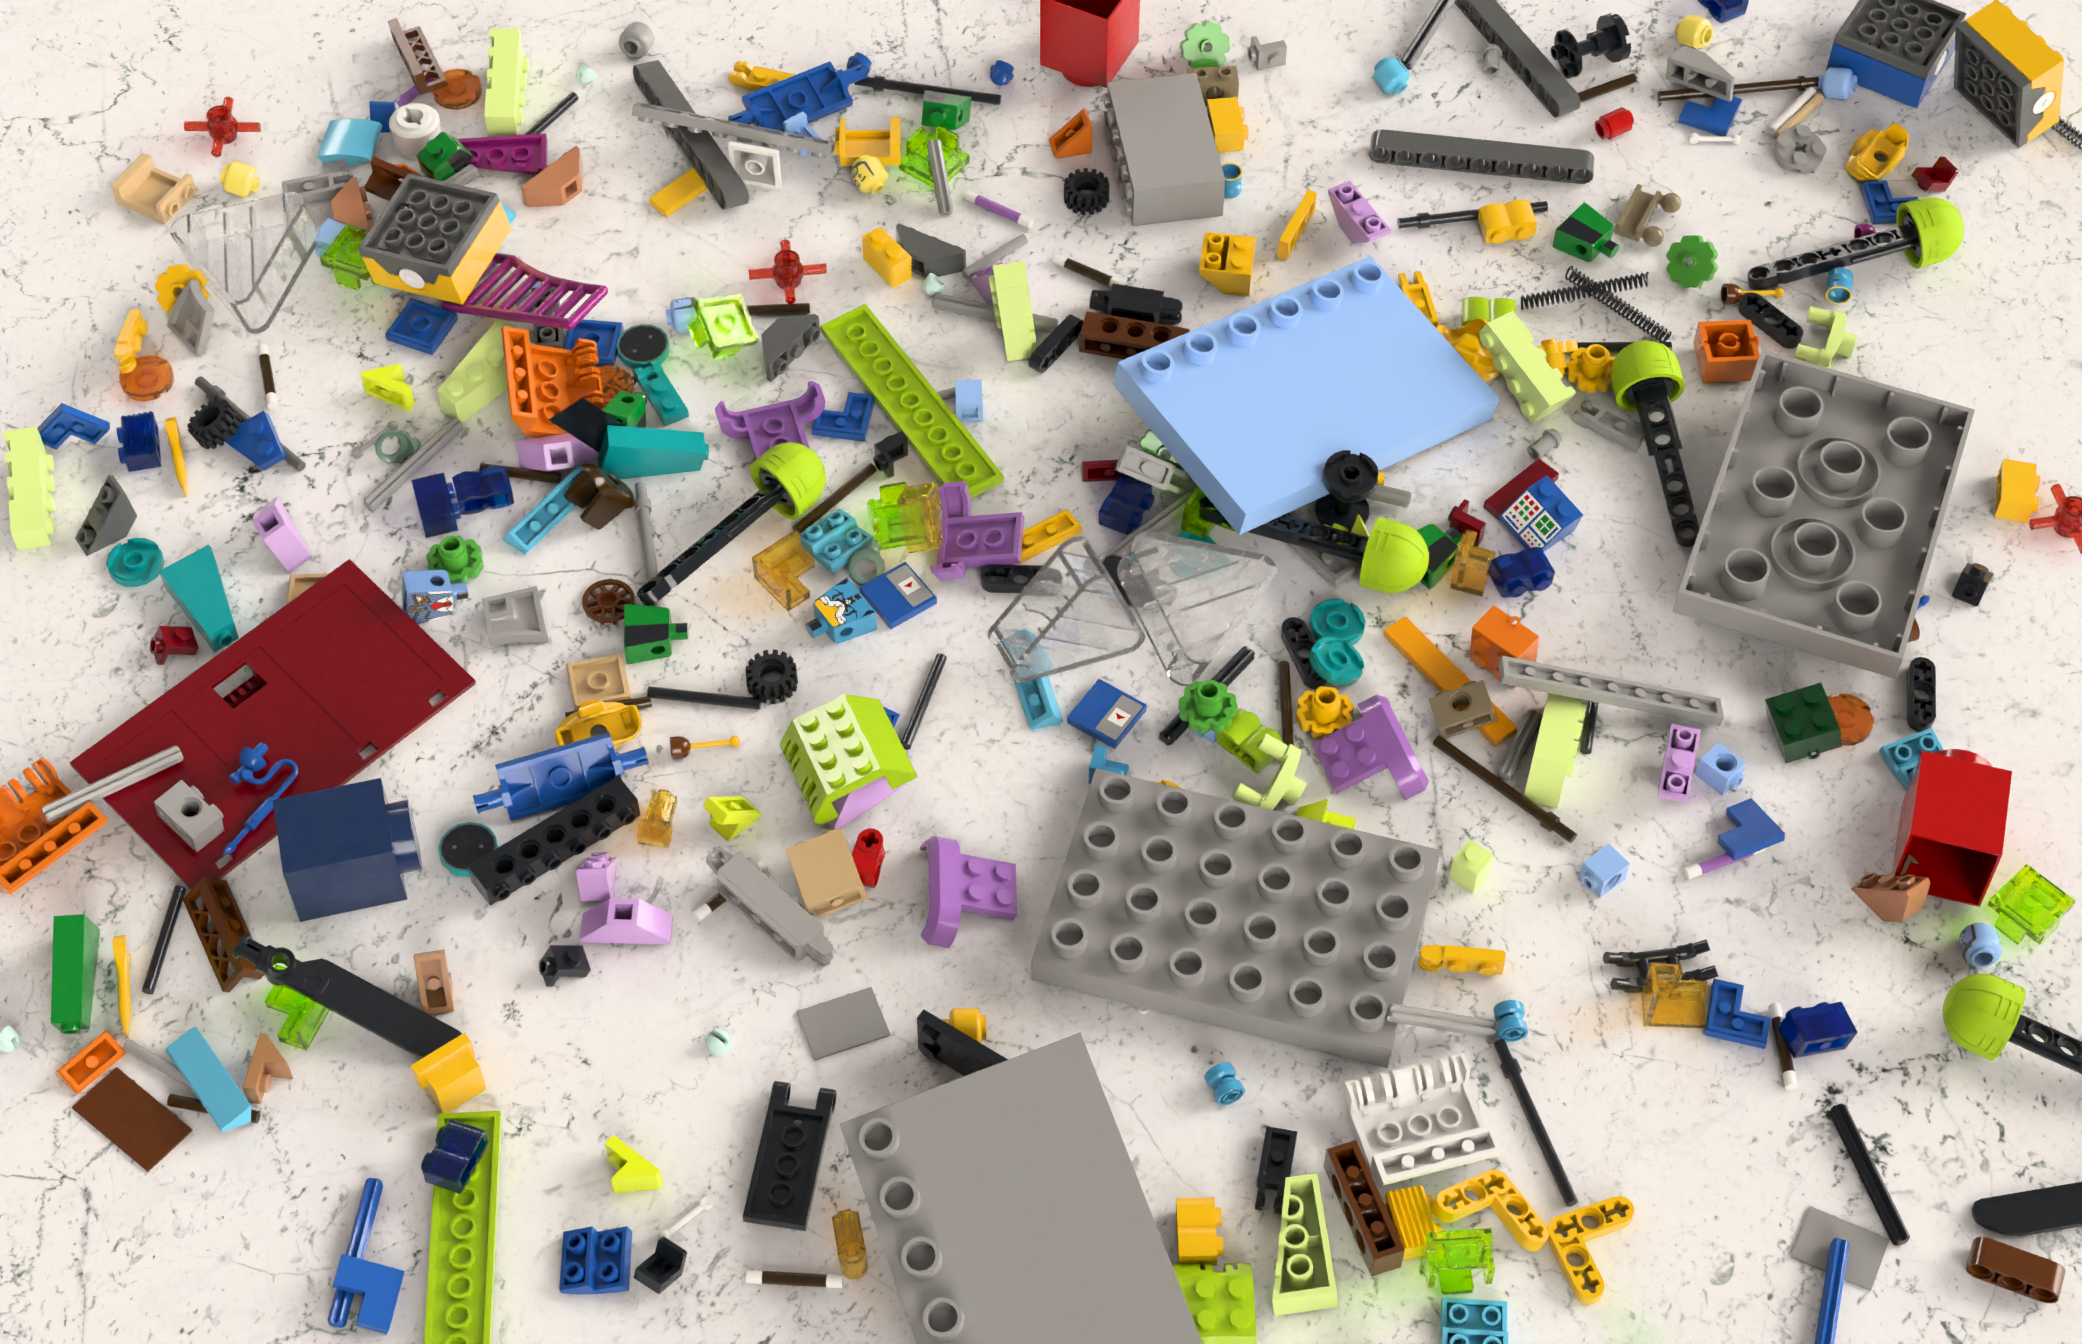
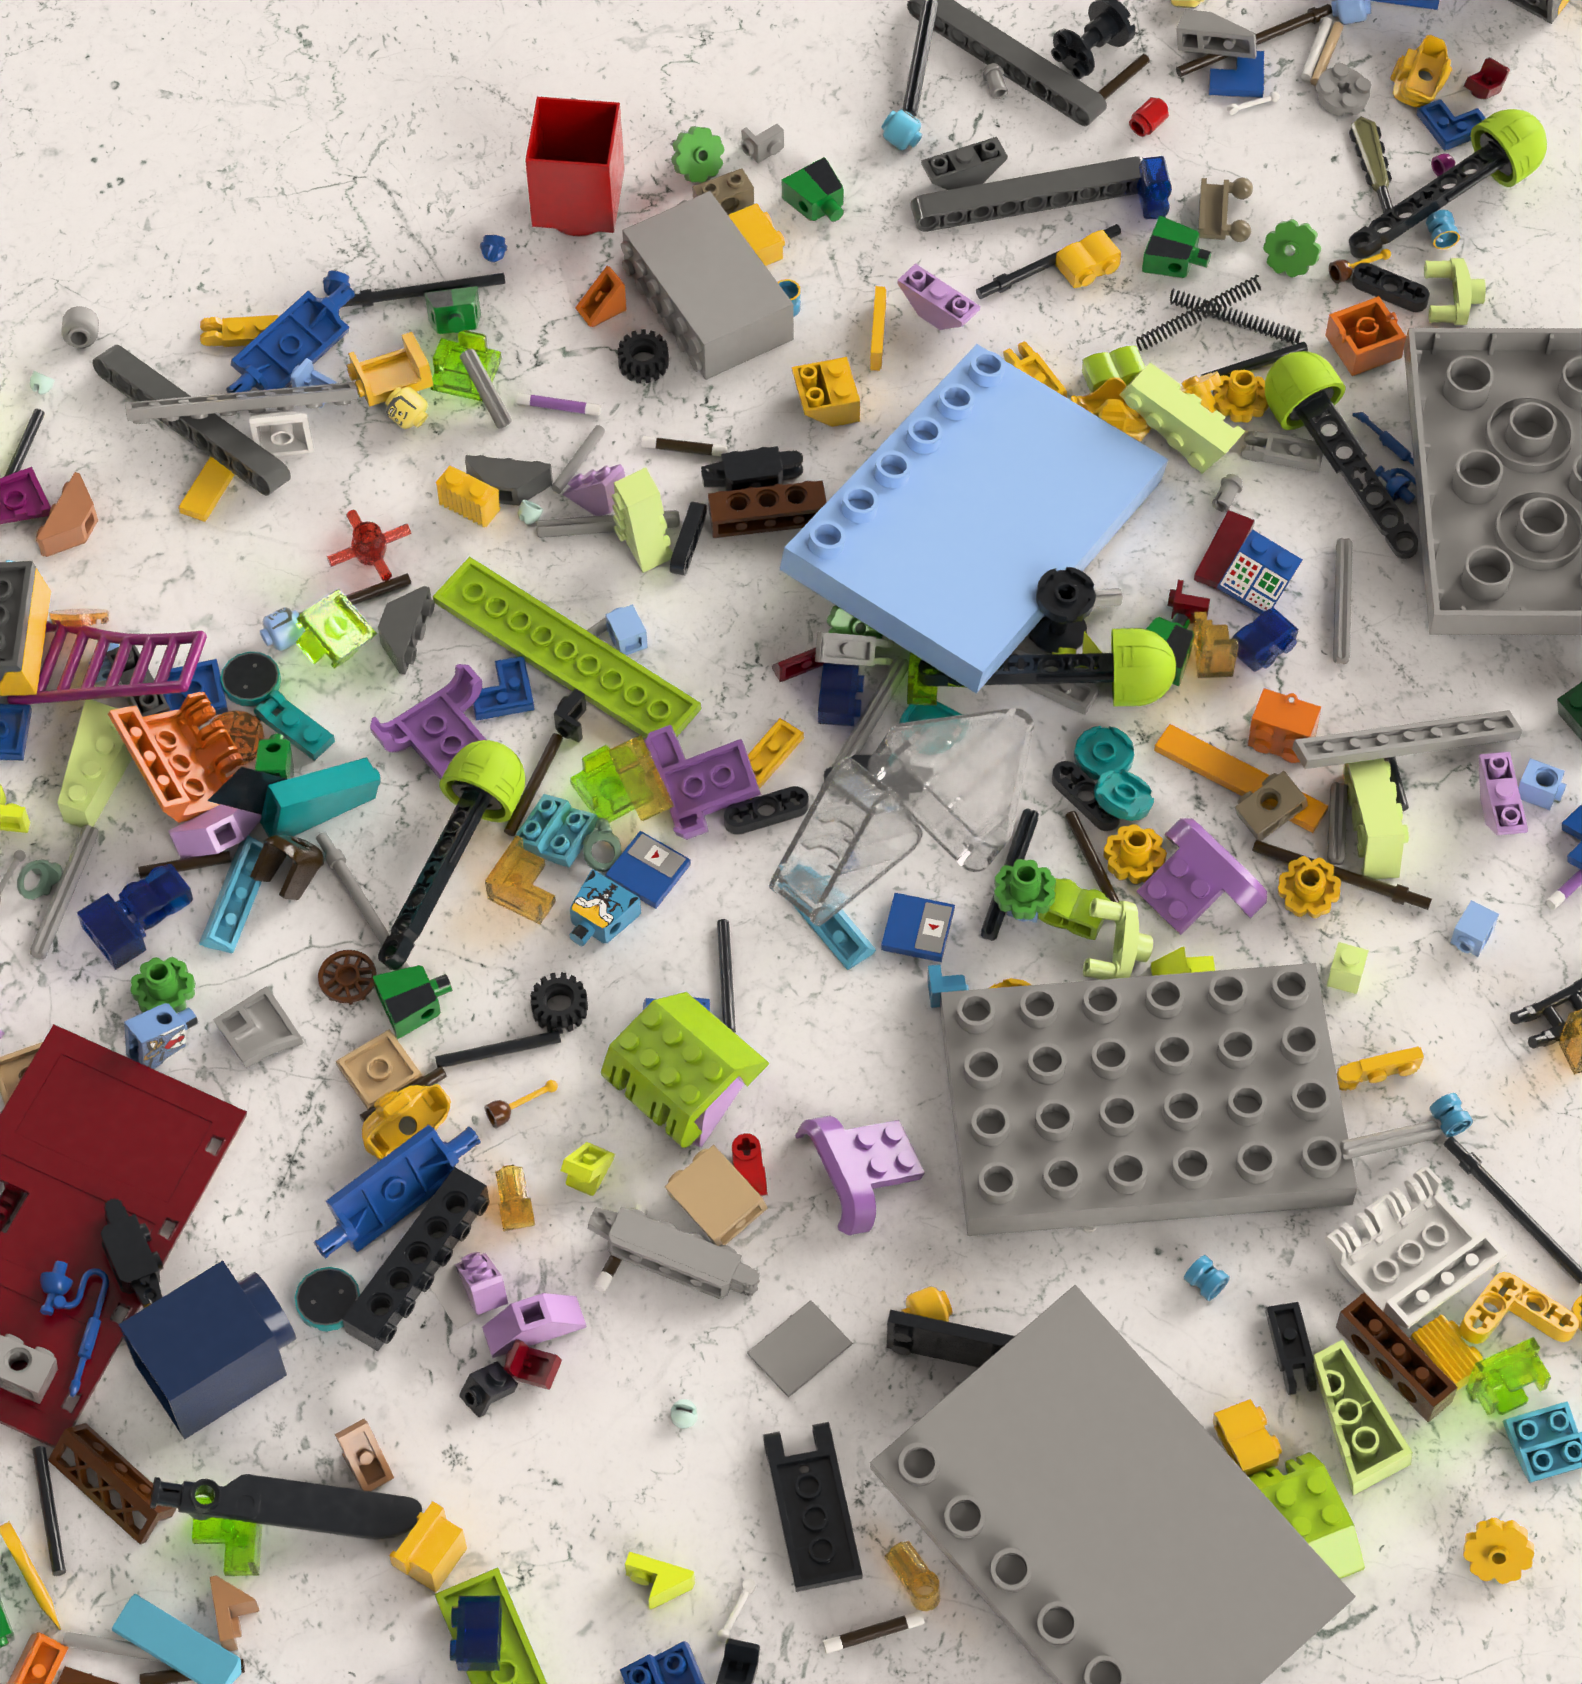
camera: 20 degrees left, 5 degrees up
(323, 753) = (130, 1255): none -> black hinge
(525, 256) = (78, 617): none -> clear orange tile
(607, 957) = (532, 1365): none -> dark red bracket
(1293, 103) = (815, 191): none -> green torso
(1432, 116) = (965, 165): none -> dark grey slope
(1468, 789) = (1310, 899): none -> yellow plant
(1589, 178) = (1154, 187): none -> clear blue brick
(1608, 563) = (1342, 601): none -> light grey axle
(1701, 482) = (1396, 485): none -> blue piece
(1803, 205) = (1371, 151): none -> olive sword

